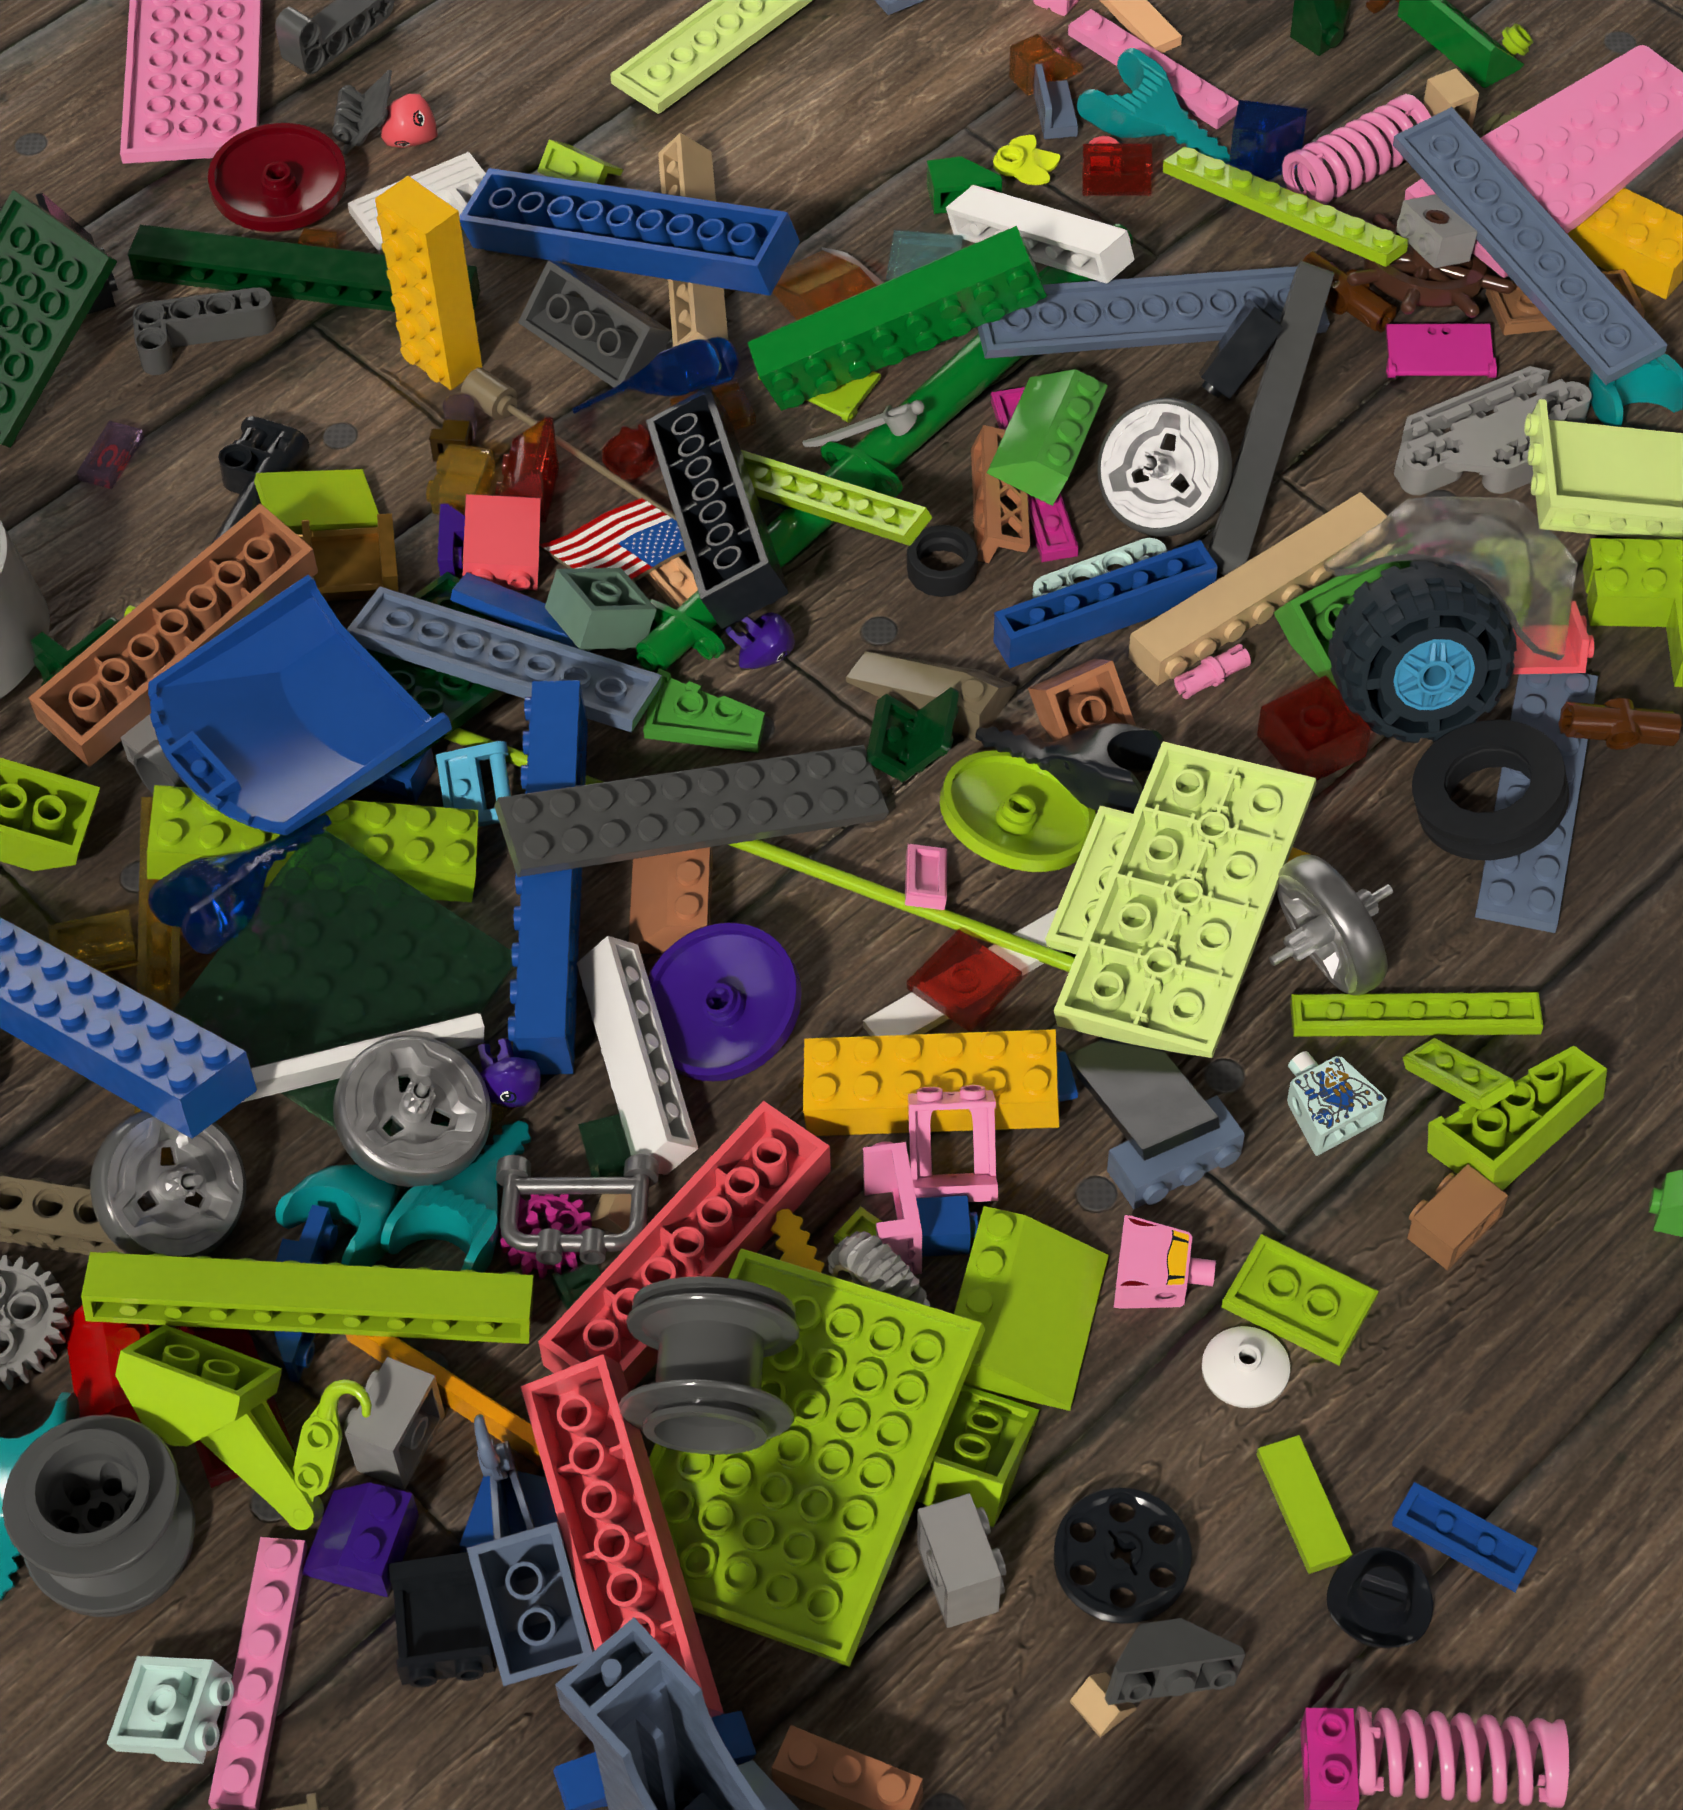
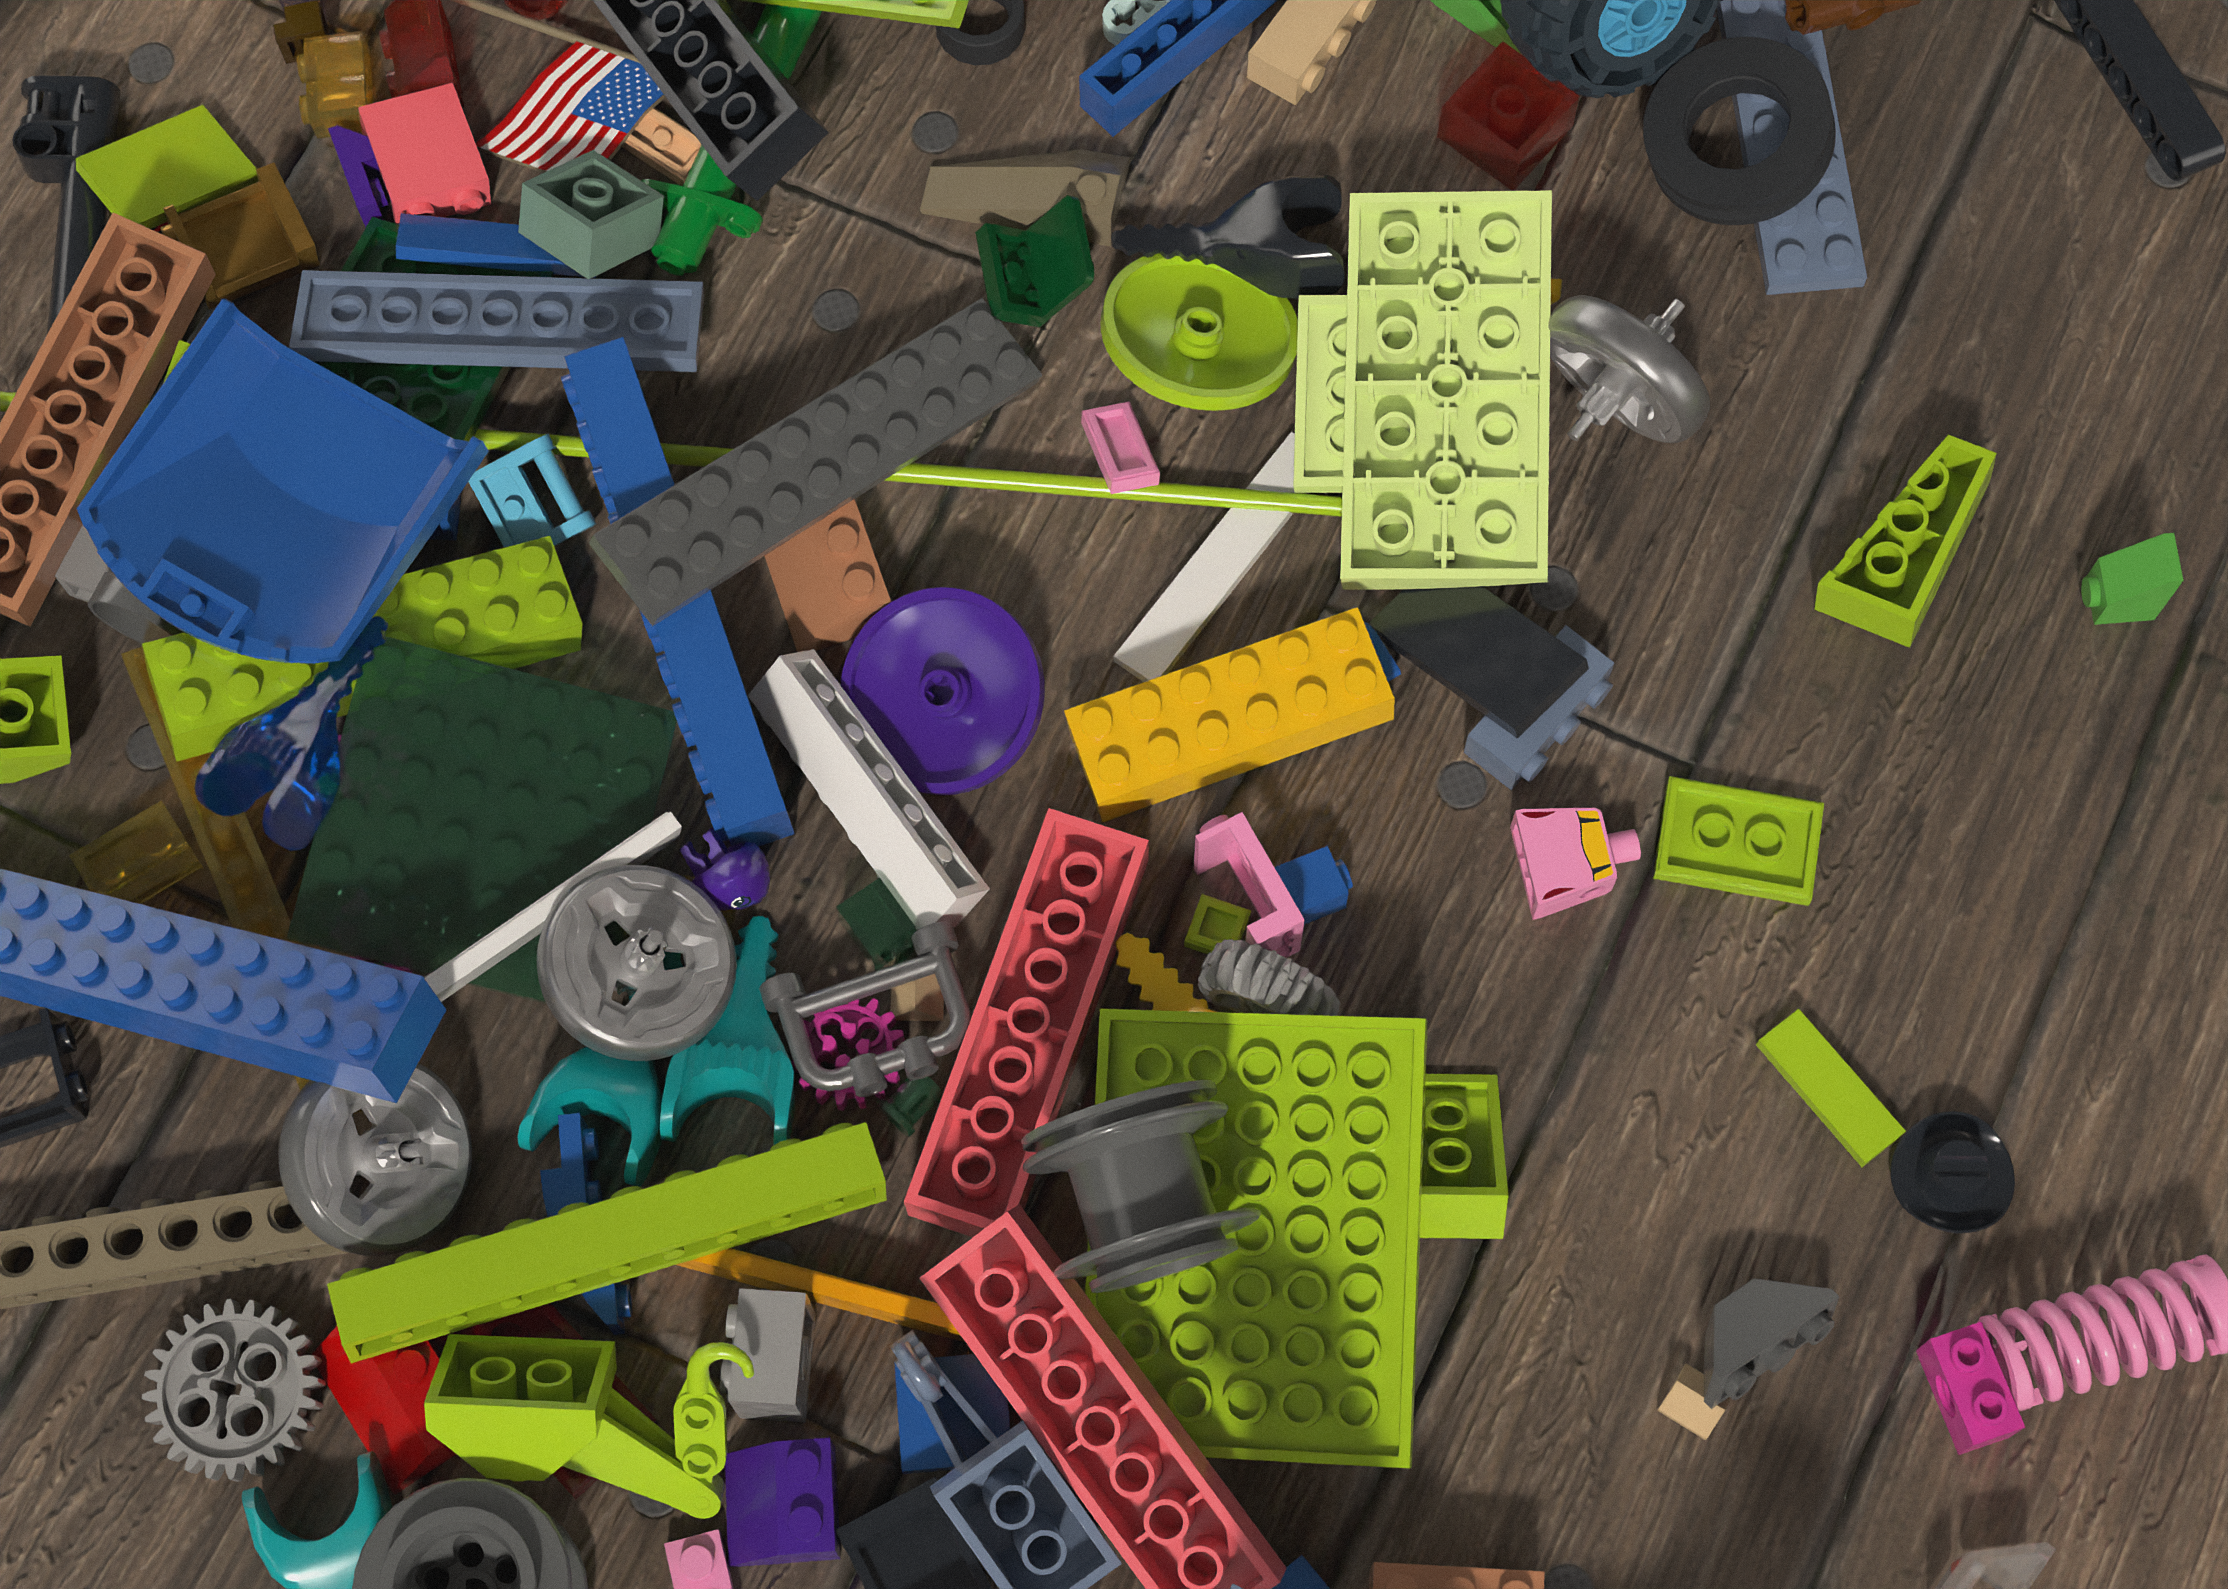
camera: 20 degrees left, 15 degrees up
(695, 717) = (767, 320): bright green wing -> none
(766, 642) = (807, 194): dark purple piece -> none
(960, 1560) = (1486, 1295): light grey brick -> none
(964, 980) = (1215, 567): clear red tile -> none
(981, 1184) = (1323, 826): bright pink panel -> none
(1036, 1305) = (1442, 950): lime slope -> none
(1081, 699) = (1219, 158): nougat slope -> none
(1116, 1574) = (1681, 1212): black wedge -> none
(1212, 671) = (1356, 68): bright pink pin -> none
(1244, 1383) = (1701, 965): white dish -> none
(1332, 1101) = (1690, 584): light aqua torso -> none
(1416, 1014) = (1744, 441): lime tile -> none
(1456, 1216) = (1880, 684): medium nougat brick -> none
(1459, 1074) = (1828, 509): lime tile -> none
(1464, 1537) = (2020, 1068): blue plate -> none

